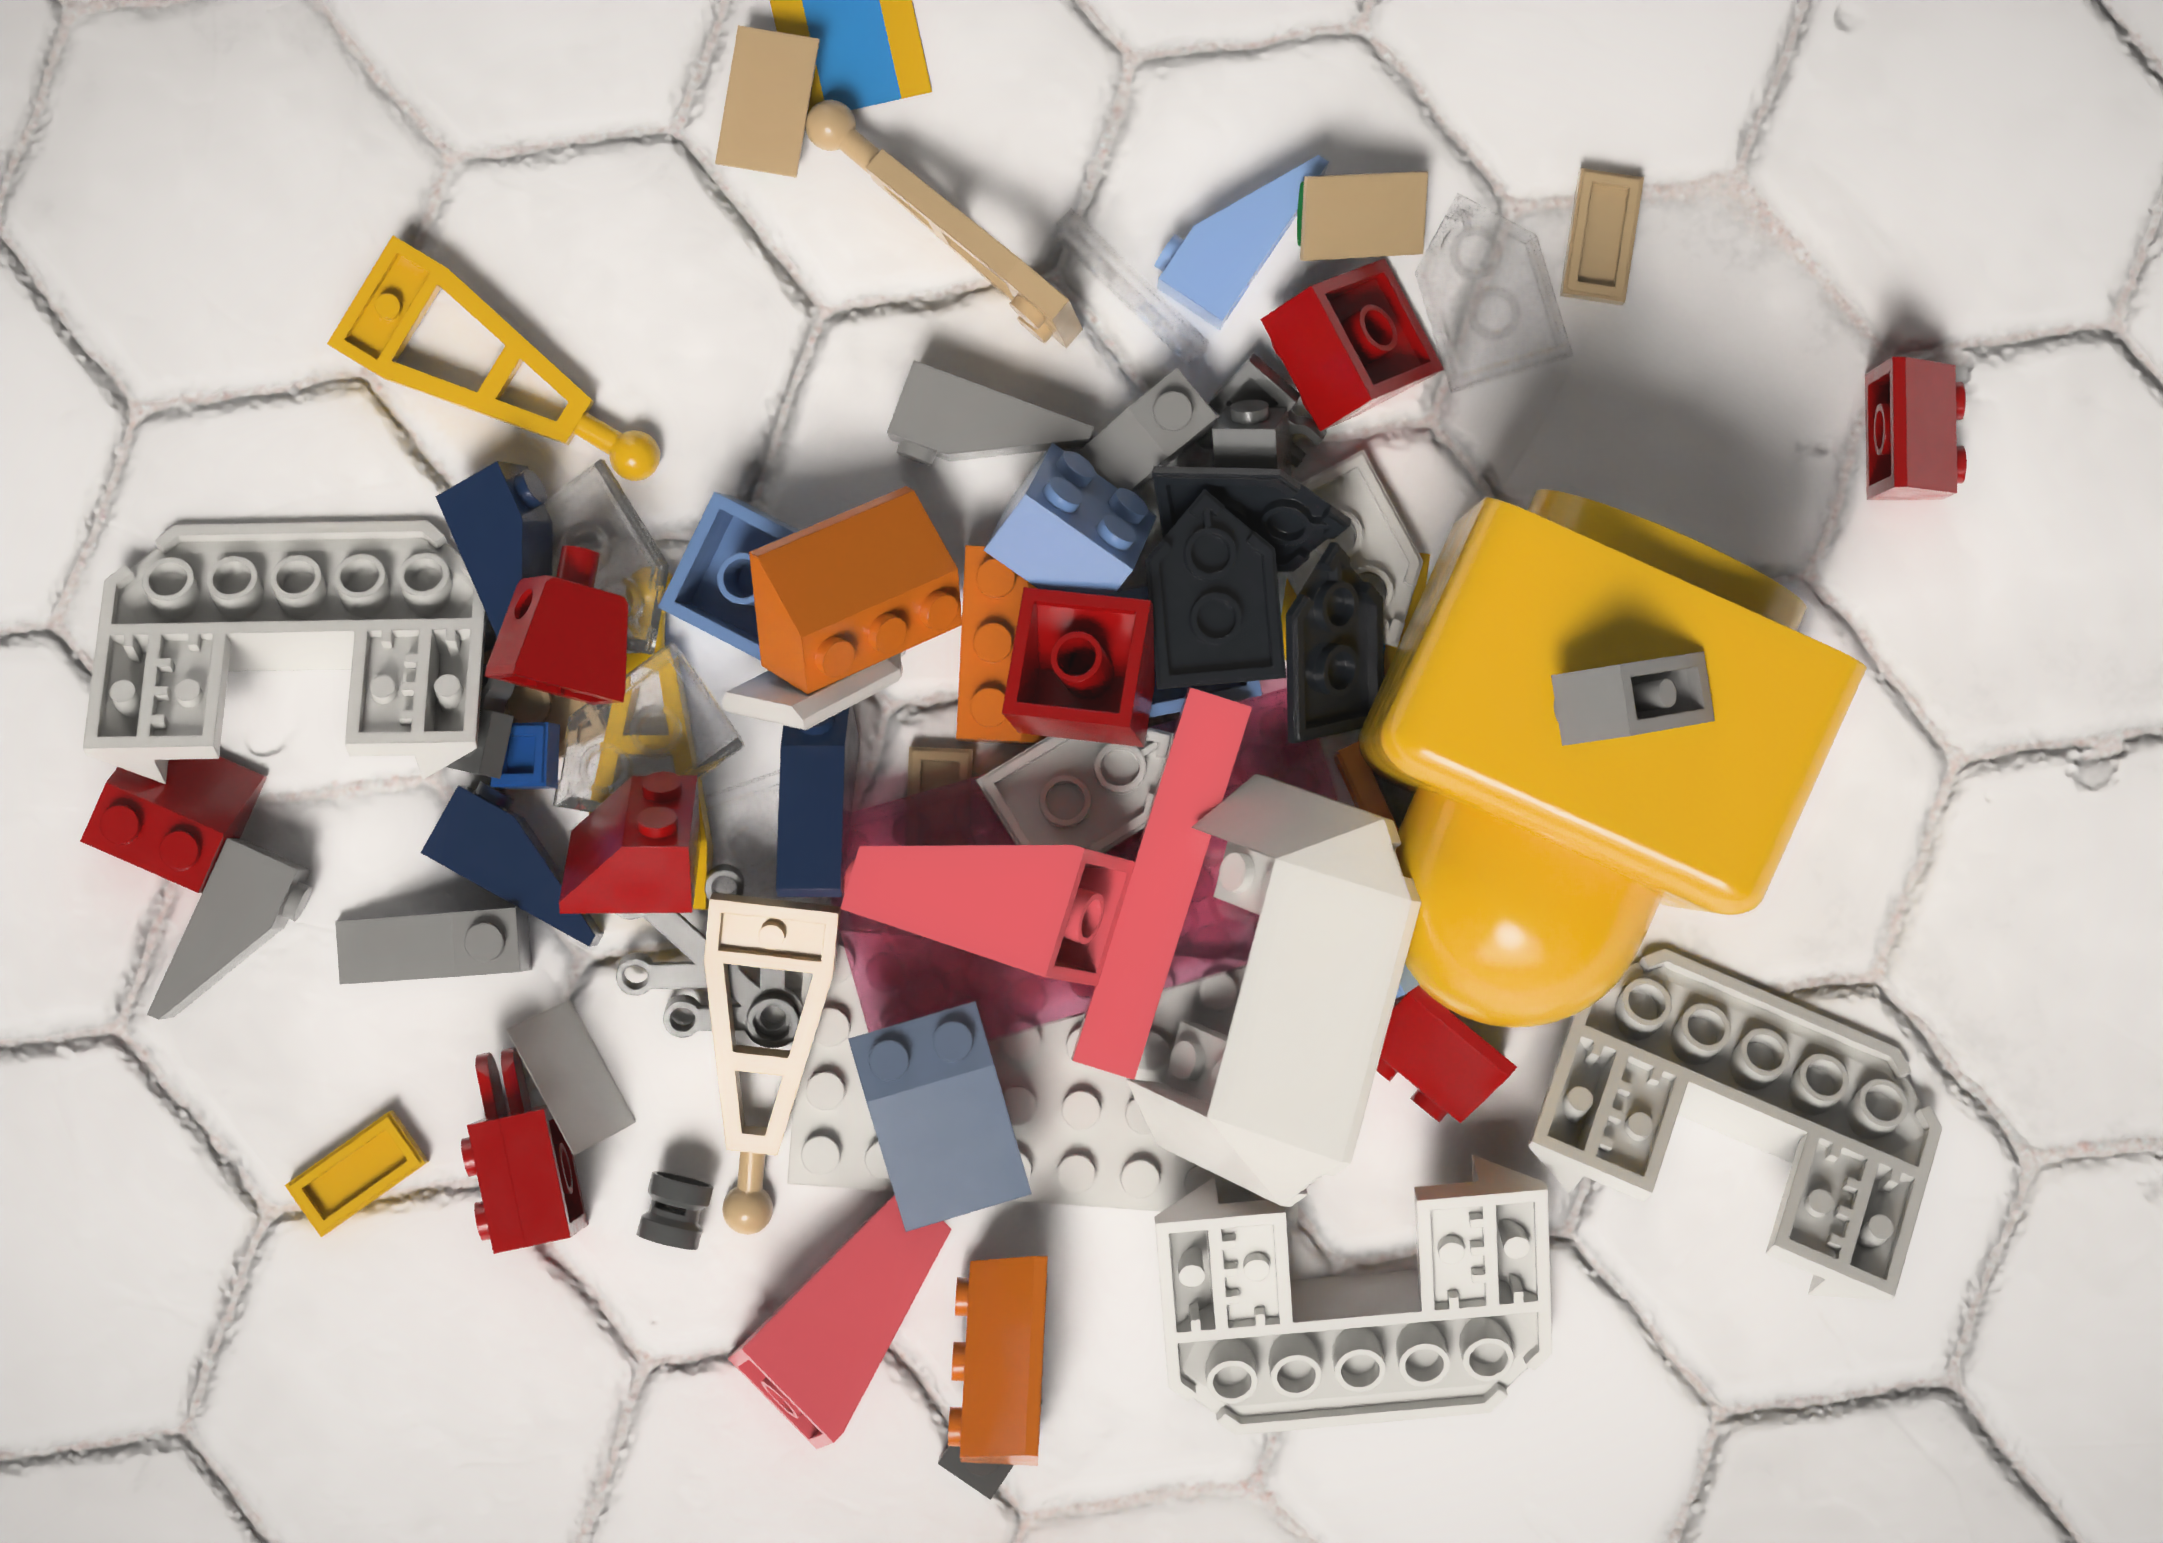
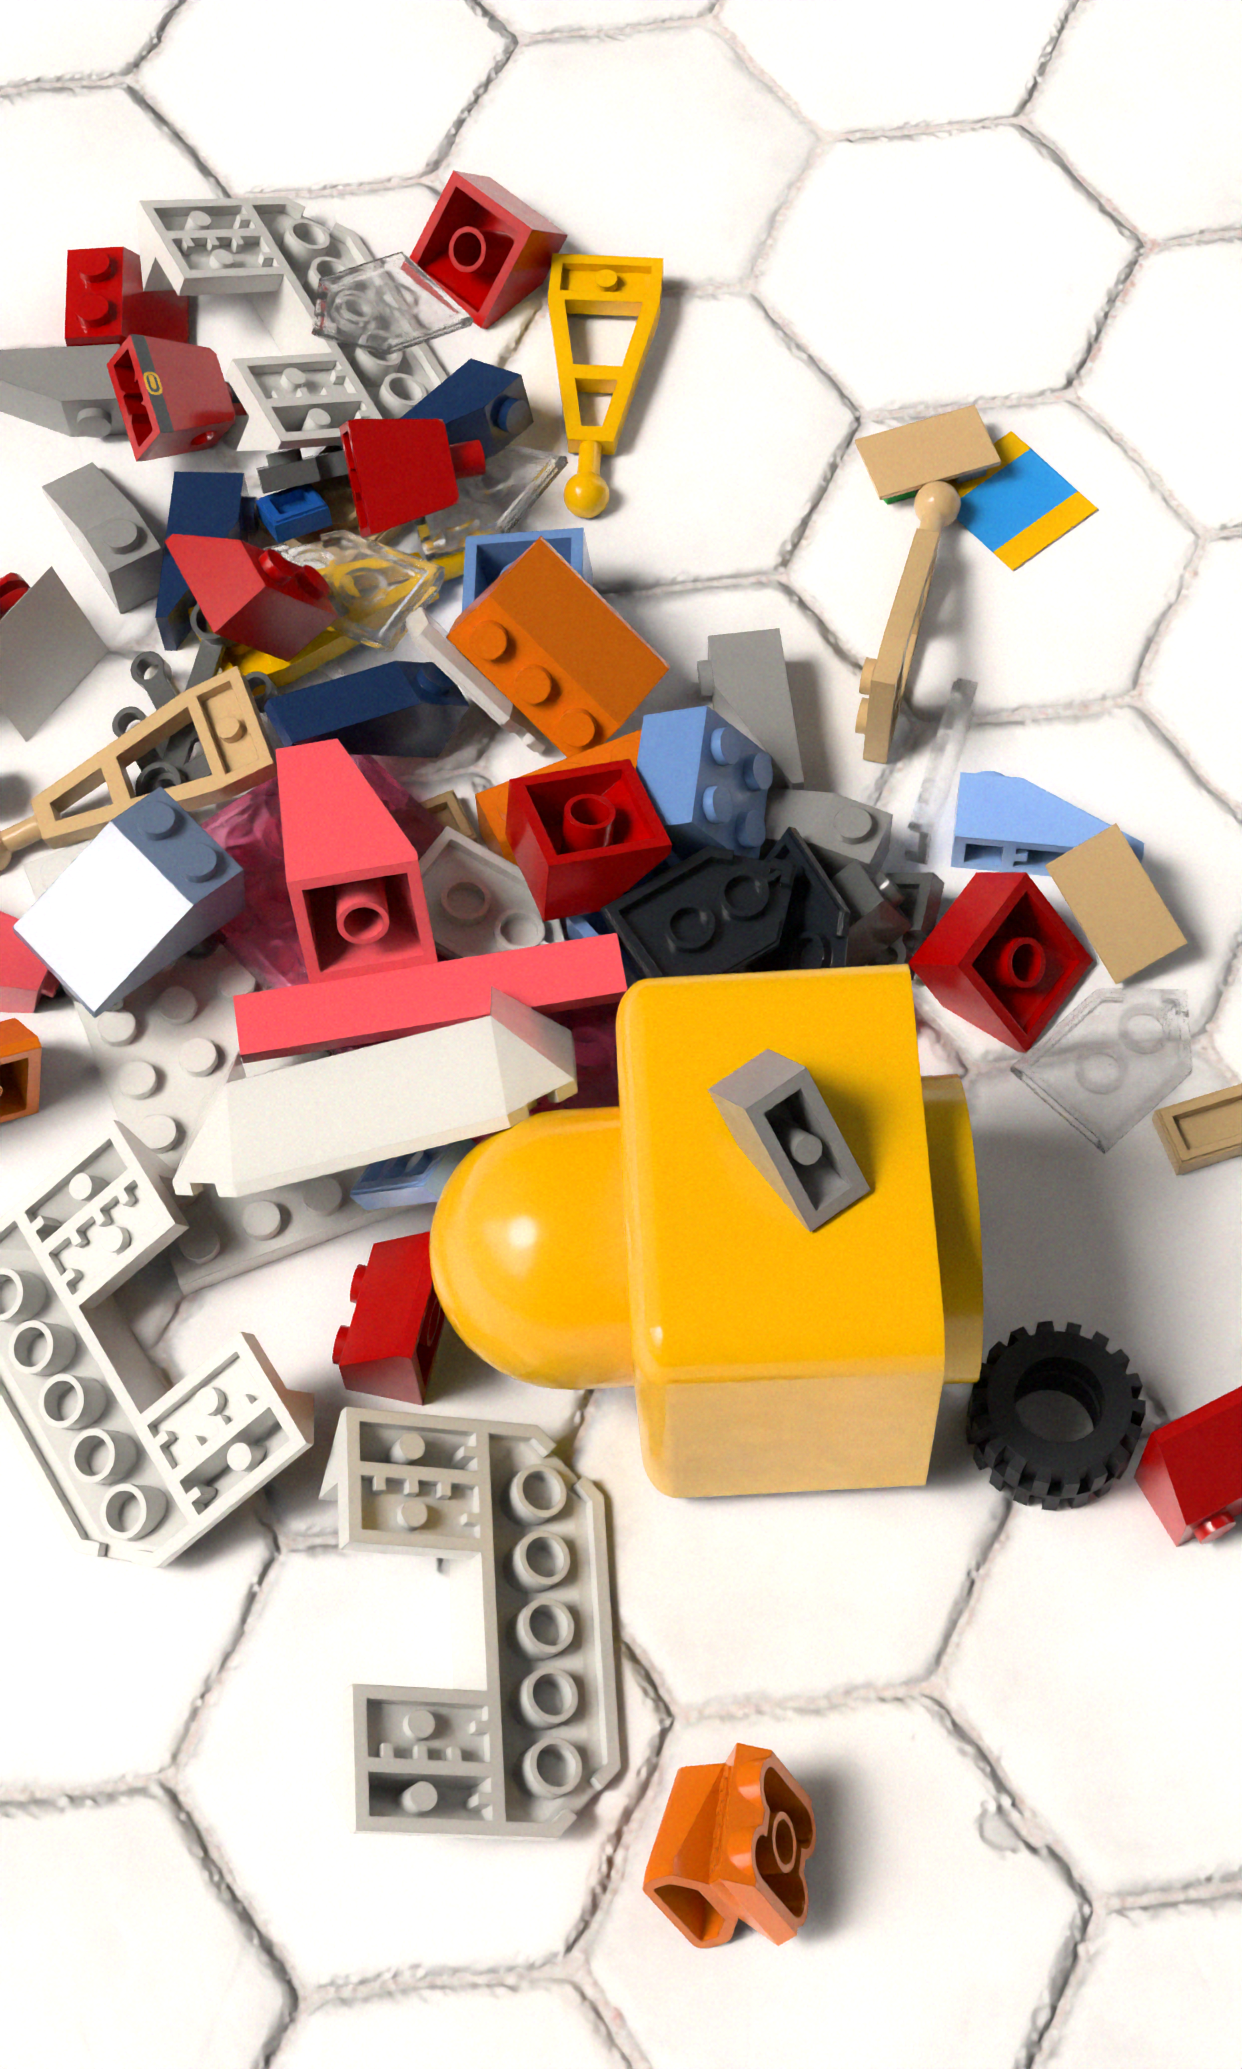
camera: 65 degrees right, 25 degrees down
(279, 407) = (486, 247): none -> red slope
(311, 547) = (384, 307): none -> clear tile
(325, 813) = (171, 396): none -> red torso
(1842, 507) = (1066, 1365): none -> black tyre
(2027, 997) = (733, 1849): none -> orange piece

